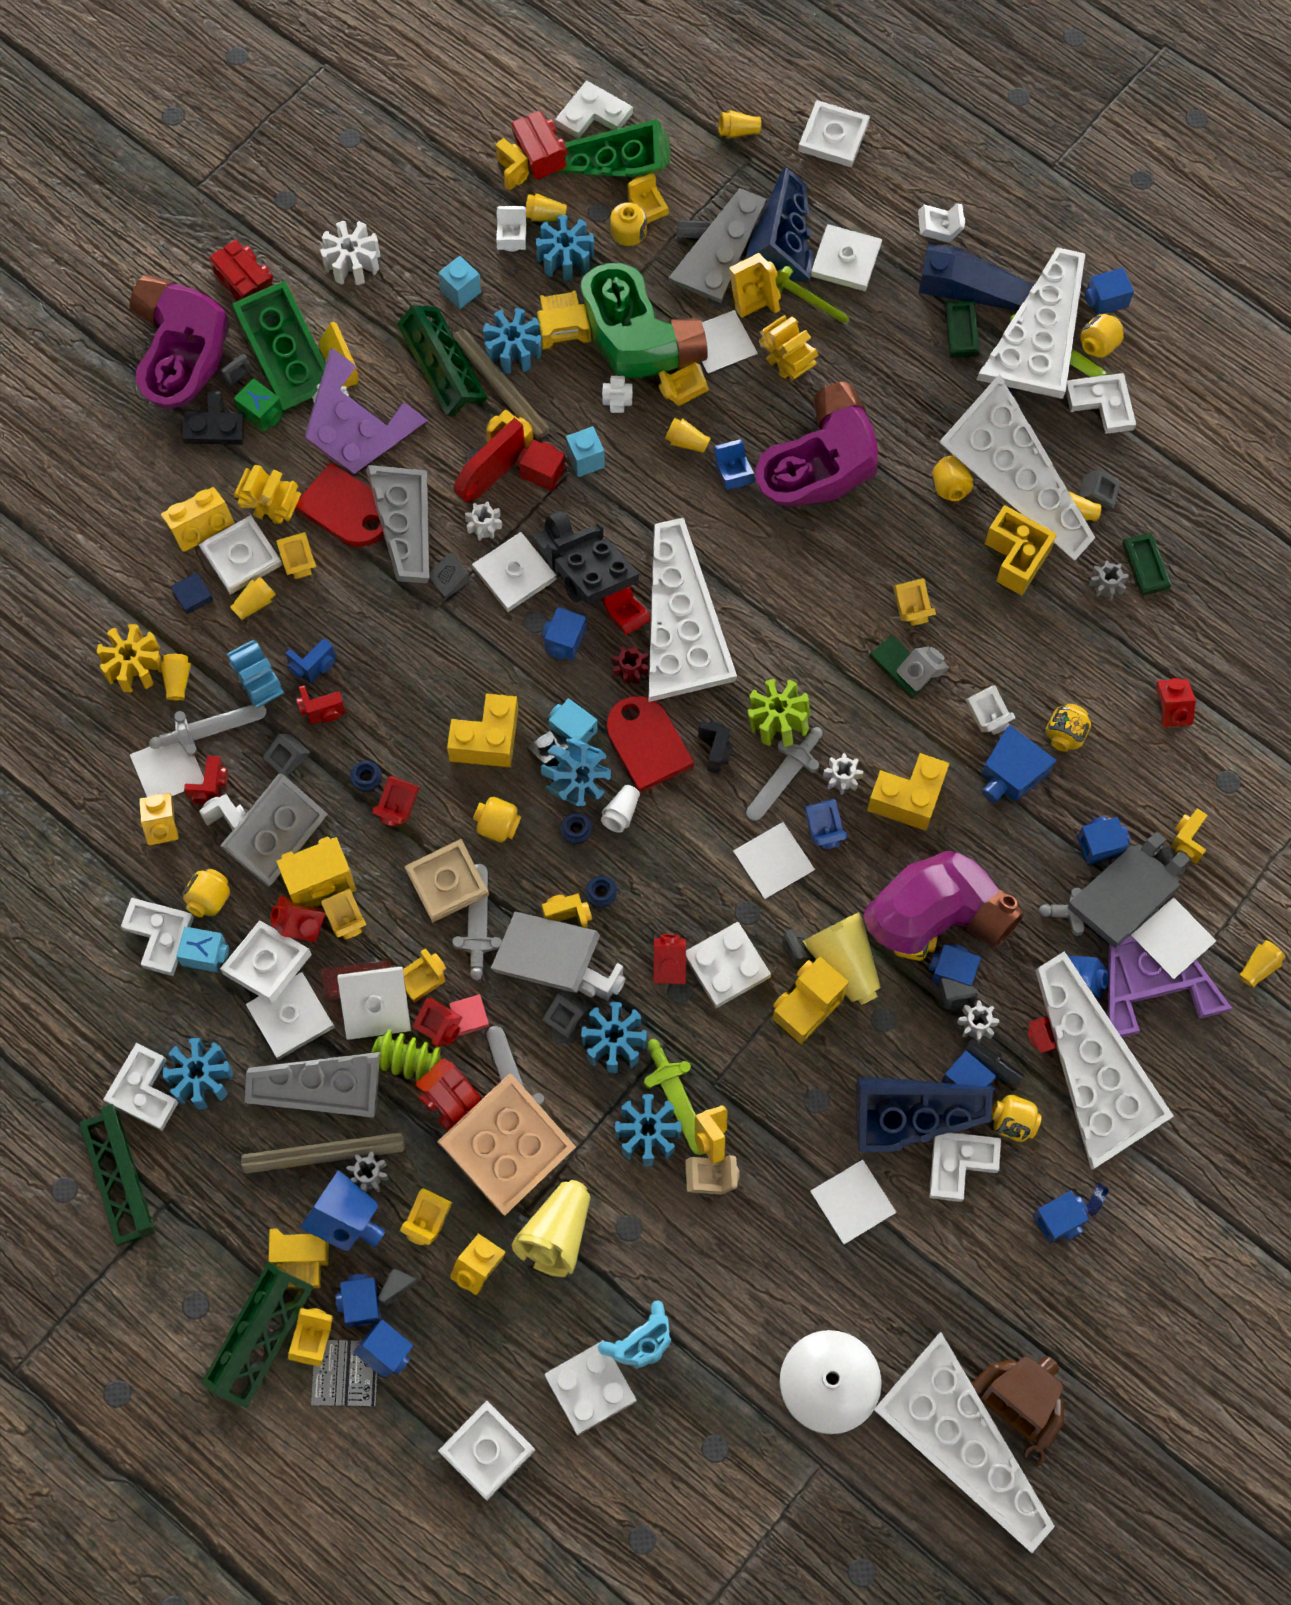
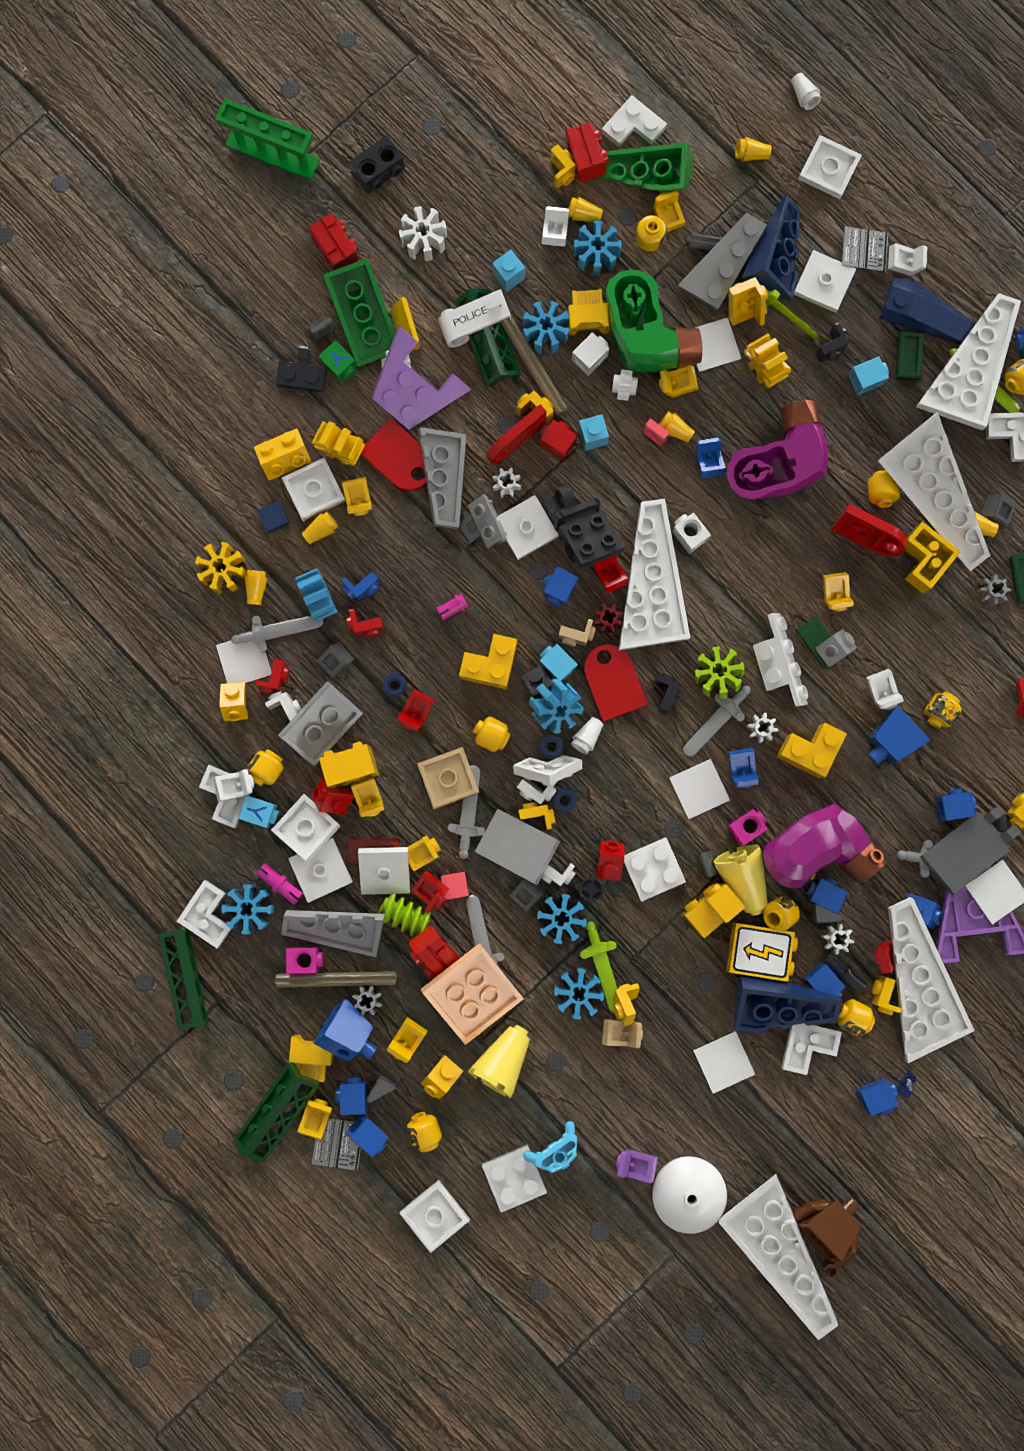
camera: 10 degrees right, 15 degrees up
(155, 151) = (268, 139): none -> green fence
(166, 915) = (233, 785): none -> white bracket
(185, 345) = (284, 303): magenta piece -> none
(237, 1038) = (279, 884): none -> dark pink pin
(266, 1121) = (293, 964): none -> dark pink brick
(283, 179) = (372, 160): none -> black brick
(418, 336) = (472, 317): none -> white door
(431, 673) = (454, 606): none -> dark pink pin
(460, 1337) = (424, 1132): none -> yellow head
(463, 565) = (485, 519): none -> light grey hinge
(556, 883) = (532, 791): none -> white bracket
(570, 364) = (590, 353): none -> white brick
(574, 853) = (548, 772): none -> white plate
(590, 691) = (572, 637): none -> tan bracket
(648, 989) = (593, 887): none -> black wheel
(662, 444) = (655, 432): none -> coral tile
(723, 565) = (690, 543): none -> white brick
(753, 1347) = (636, 1165): none -> medium lavender bracket
(795, 59) = (806, 92): none -> white cone
(833, 906) = (738, 832): none -> dark pink brick
(852, 695) = (778, 663): none -> white bracket
(869, 326) = (833, 348): none -> black bracket
(880, 1047) = (761, 952): none -> panel
(890, 217) = (865, 248): none -> light grey sticker
(899, 997) = (781, 913): none -> yellow head
(915, 354) = (868, 375): none -> medium azure brick
(943, 526) = (870, 532): none -> red tile
(1046, 1079) = (882, 993): none -> yellow bracket

